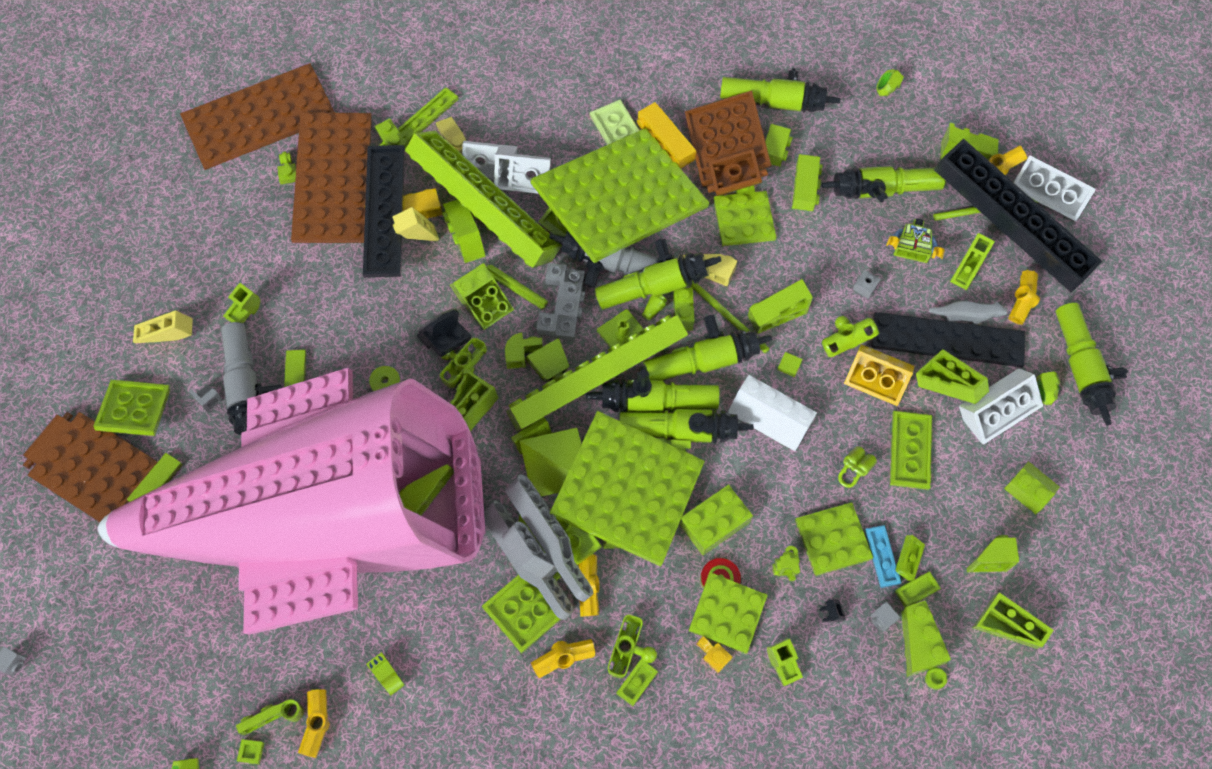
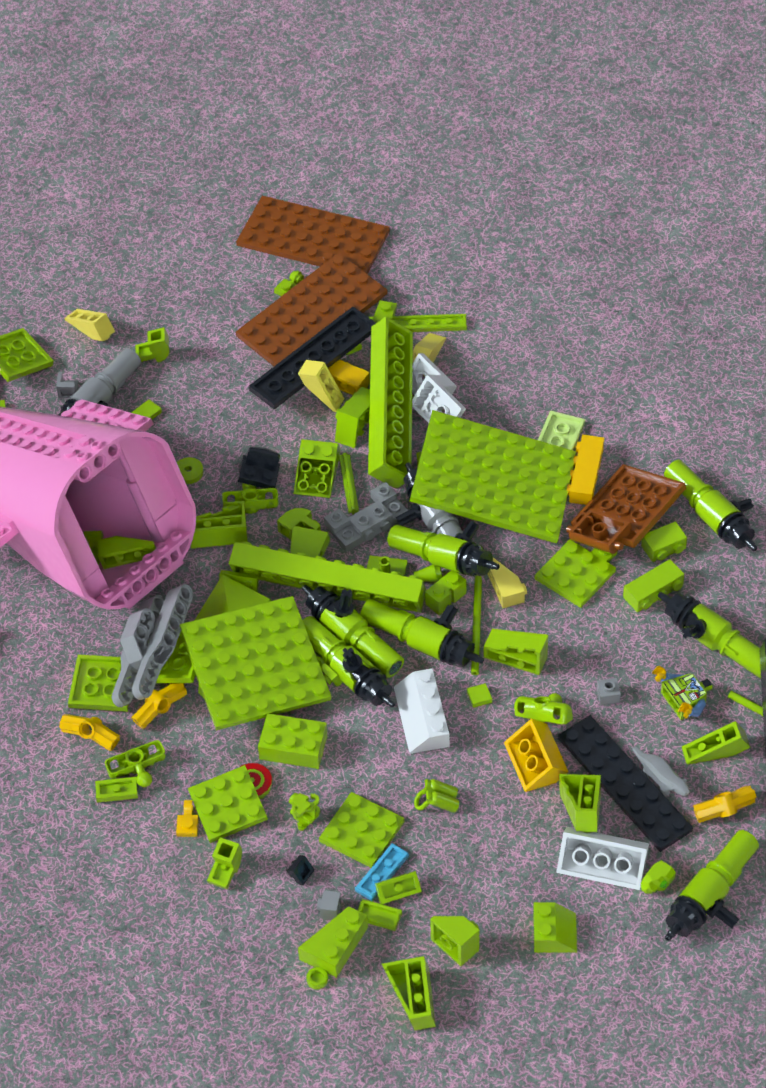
camera: 50 degrees right, 15 degrees down
(911, 450) = (495, 826): lime tile -> none

